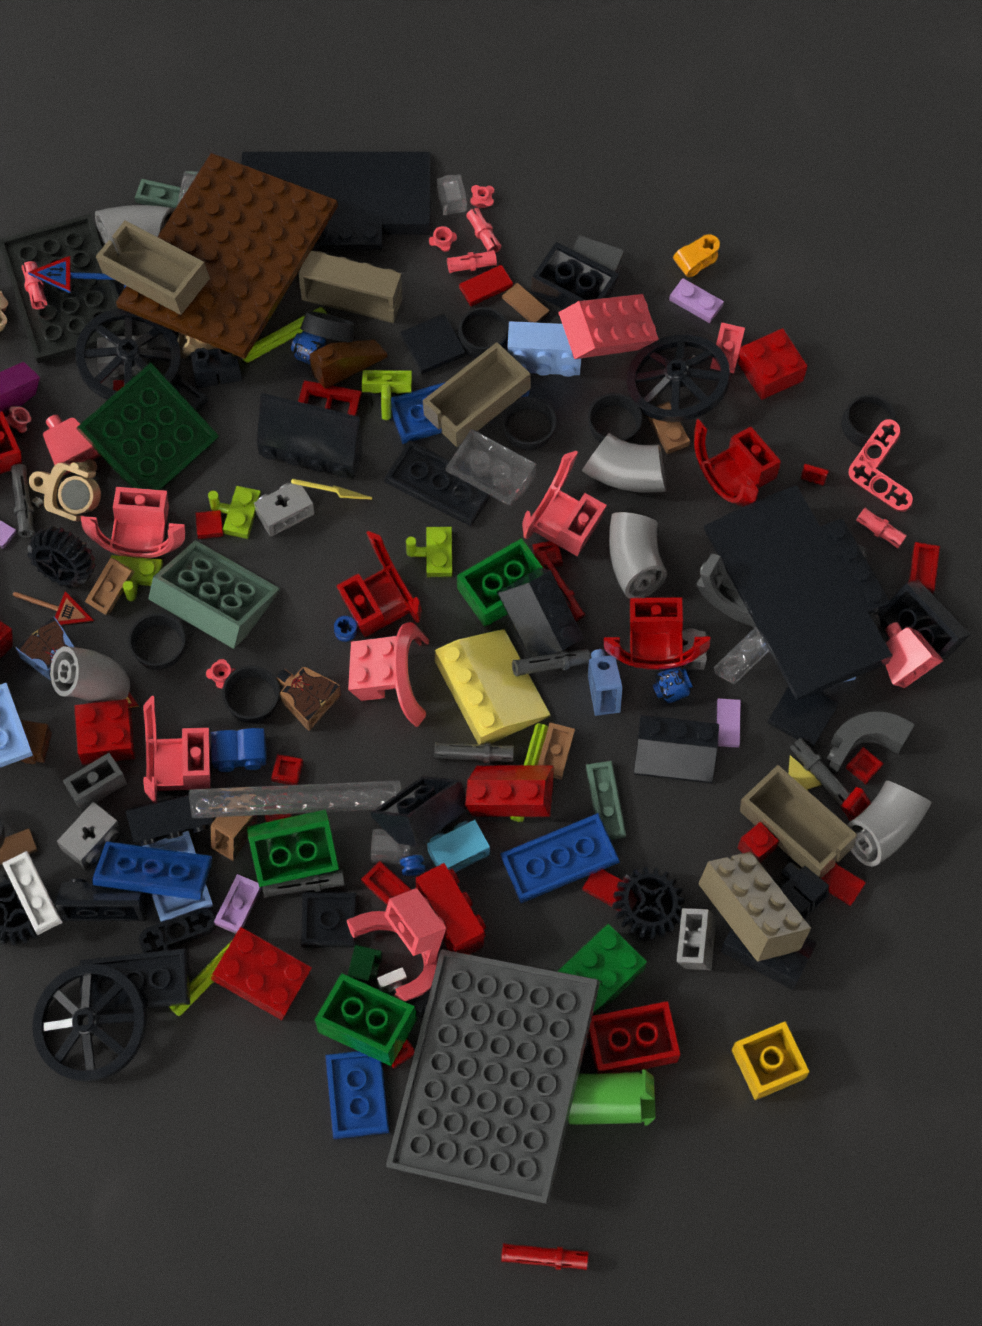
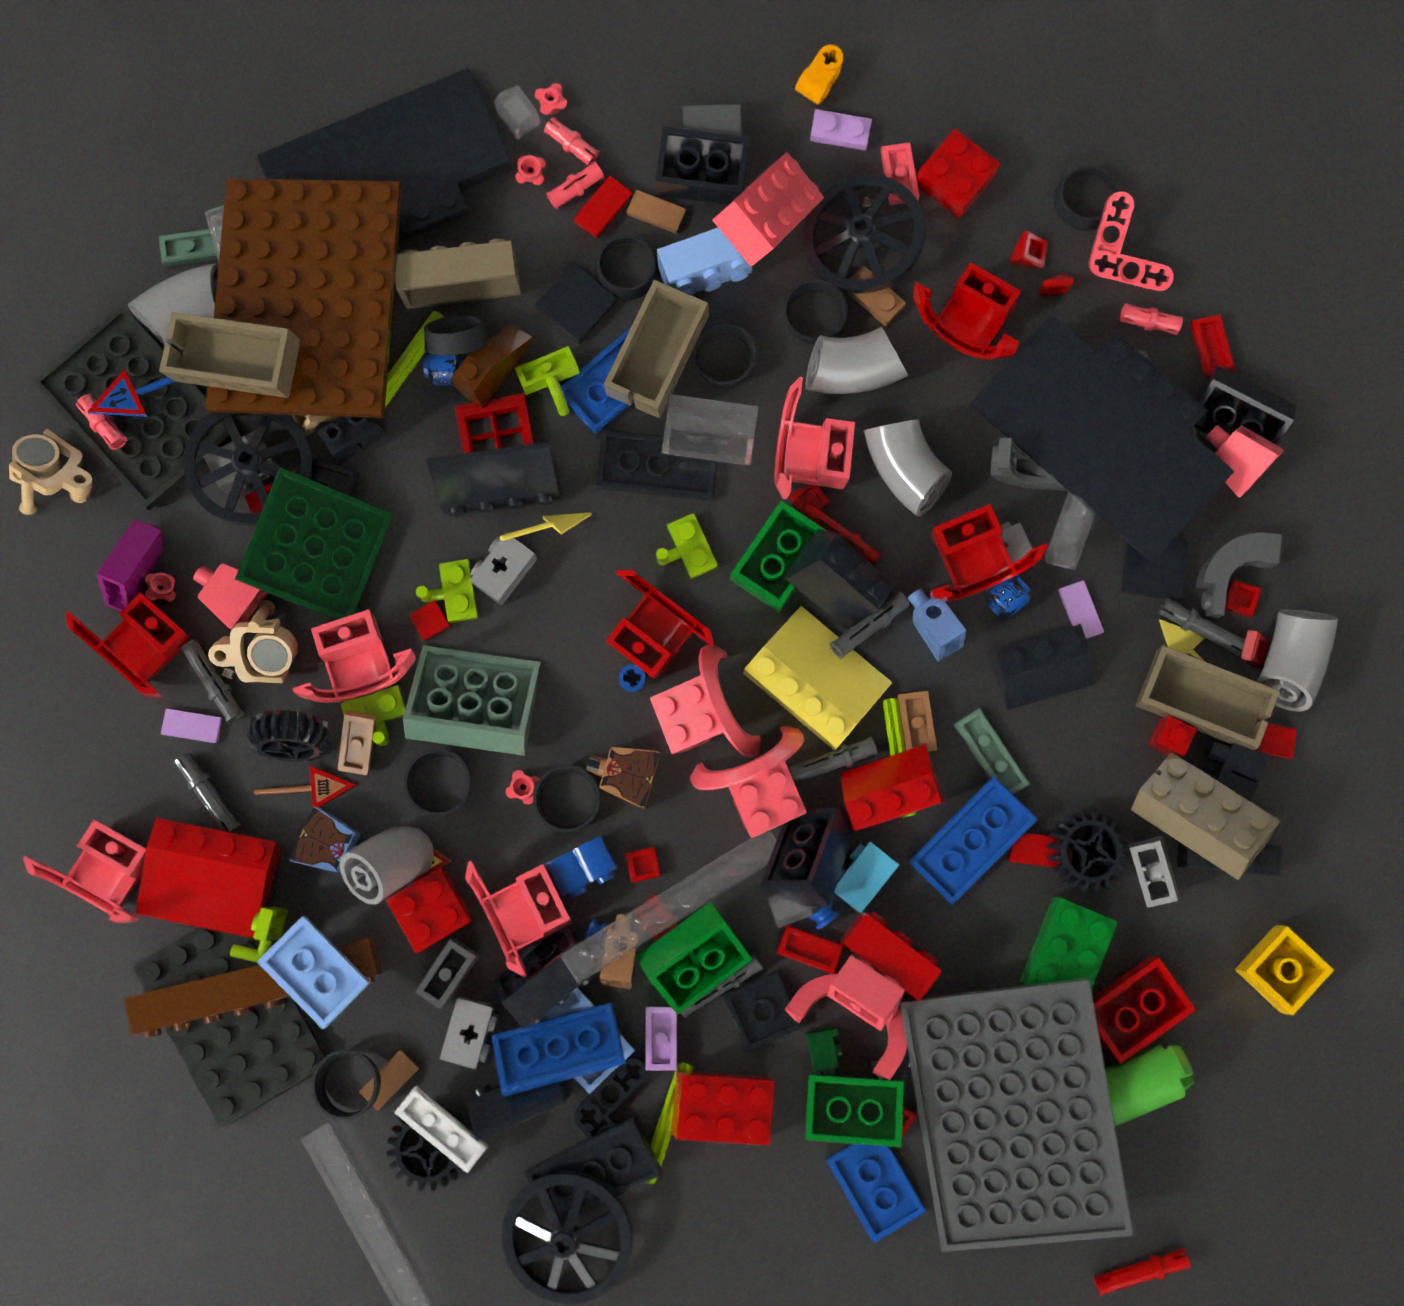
camera: 20 degrees left, 15 degrees up
(392, 980) = (861, 1052): white plate -> none
(407, 741) = (761, 787): none -> coral piece
(806, 442) = (1030, 251): none -> red slope

